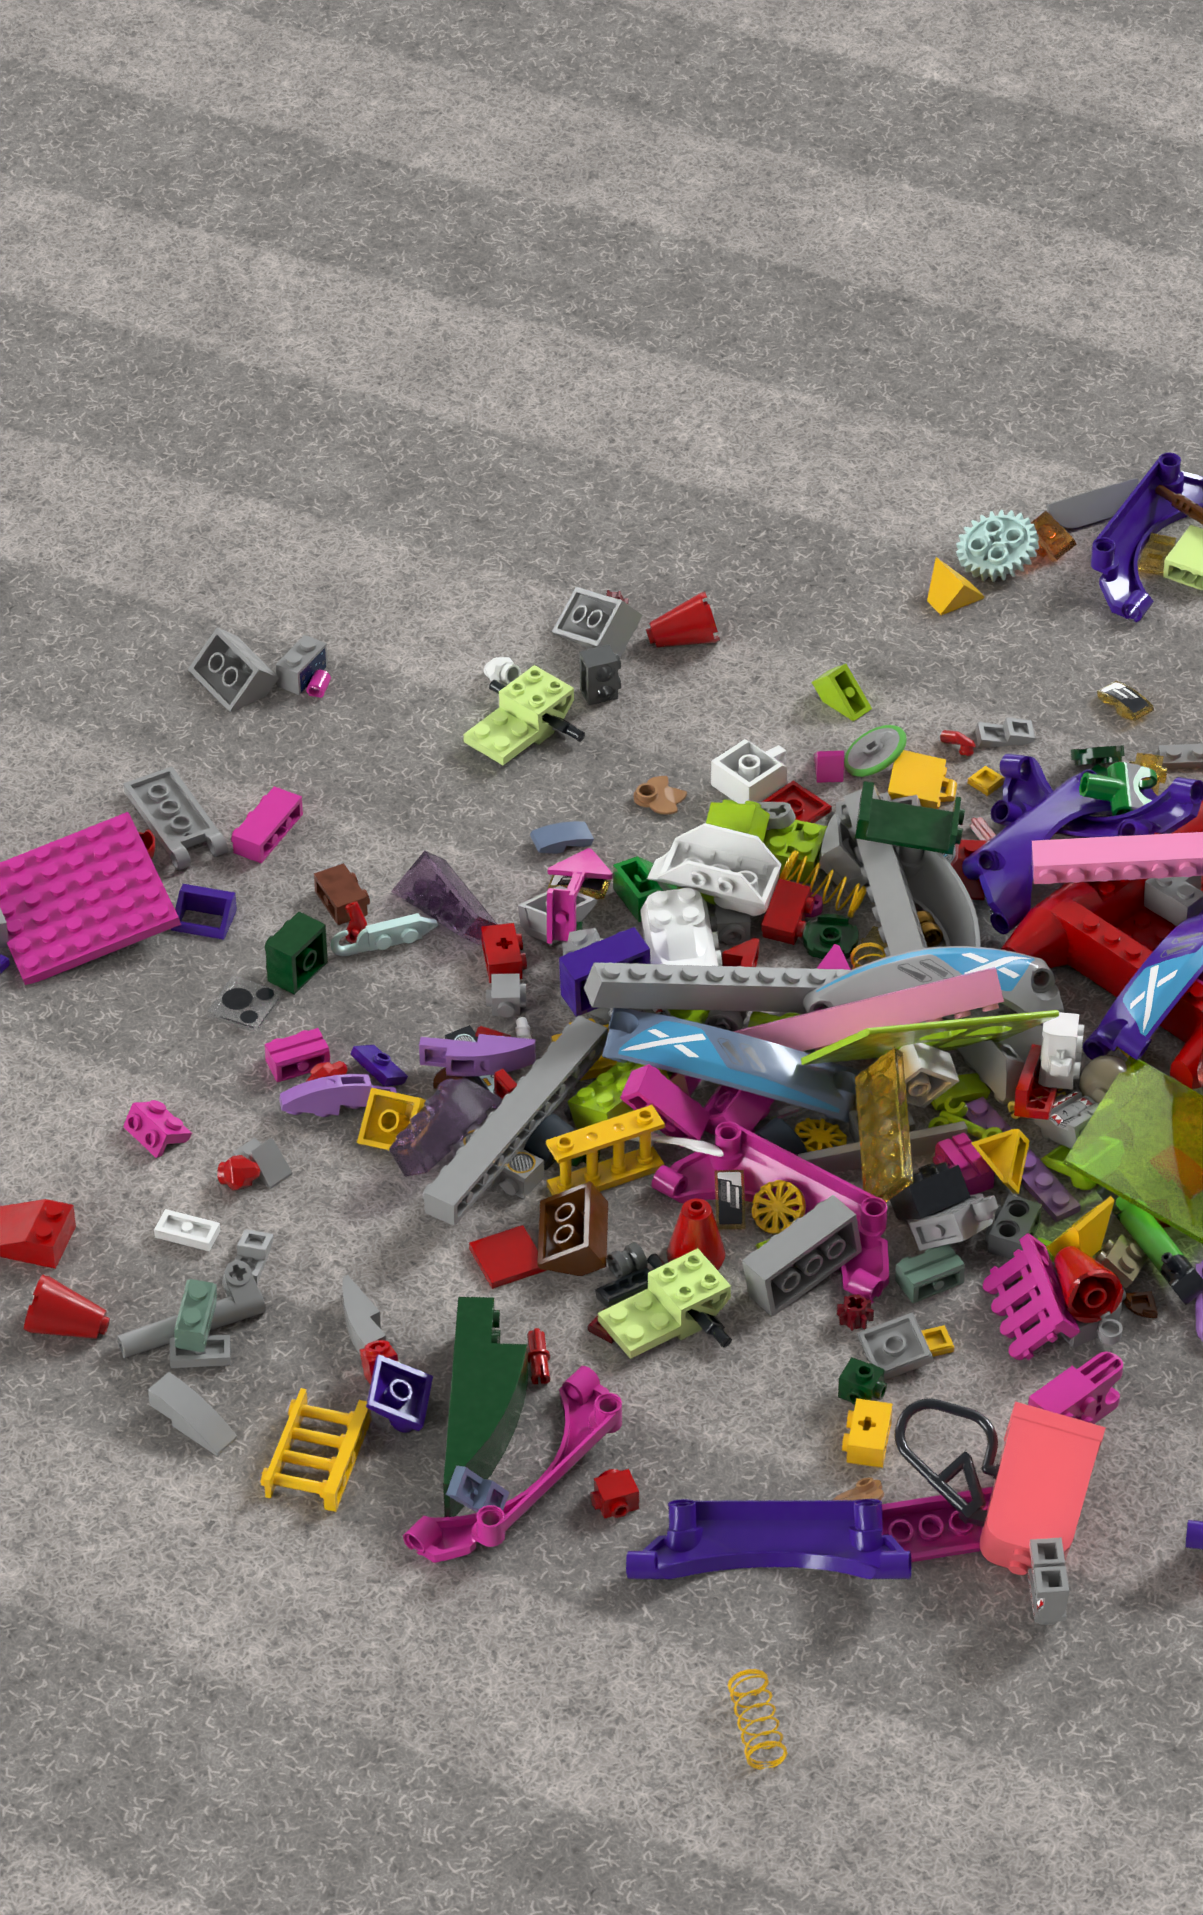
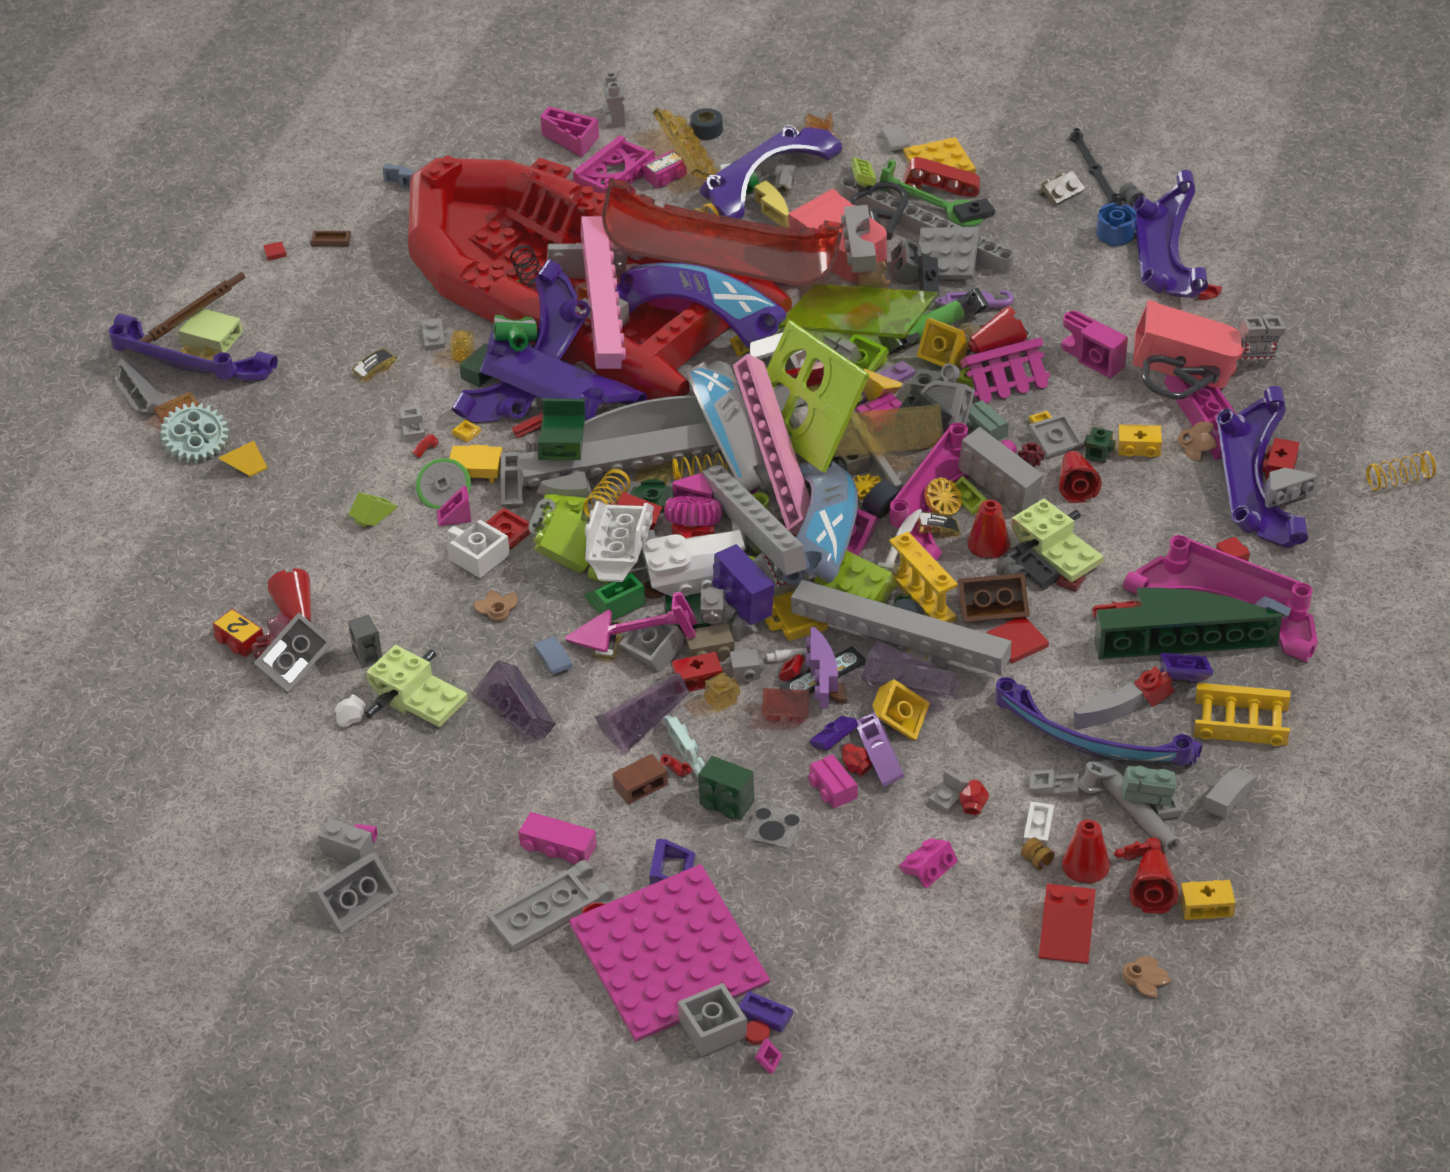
camera: 95 degrees left, 0 degrees up
(25, 1361) = (1207, 899): none -> yellow brick
(118, 1256) = (1086, 854): none -> red cone
(122, 1323) = (1137, 850): none -> red piece
(138, 1219) = (1035, 851): none -> pearl gold wheel
(342, 1238) = (1018, 699): none -> dark purple panel
(428, 1020) = (785, 703): none -> clear red bracket
(462, 969) = (721, 691): none -> clear yellow brick
(483, 799) = (514, 699): none -> clear purple wedge
(503, 1083) = (857, 646): red tile -> none
(544, 962) = (711, 639): none -> dark tan brick
(646, 608) = (277, 624): none -> clear pink animal
(647, 586) = (236, 632): none -> brick
(679, 1112) = (870, 547): dark pink brick -> none
(735, 1568) = (1288, 485): none -> light grey slope
(776, 948) = (693, 511): none -> dark pink gear
(800, 1348) = (1078, 478): none -> red cone
(803, 1586) = (1281, 455): none -> red brick
(1087, 756) = (445, 368): dark green plate -> none

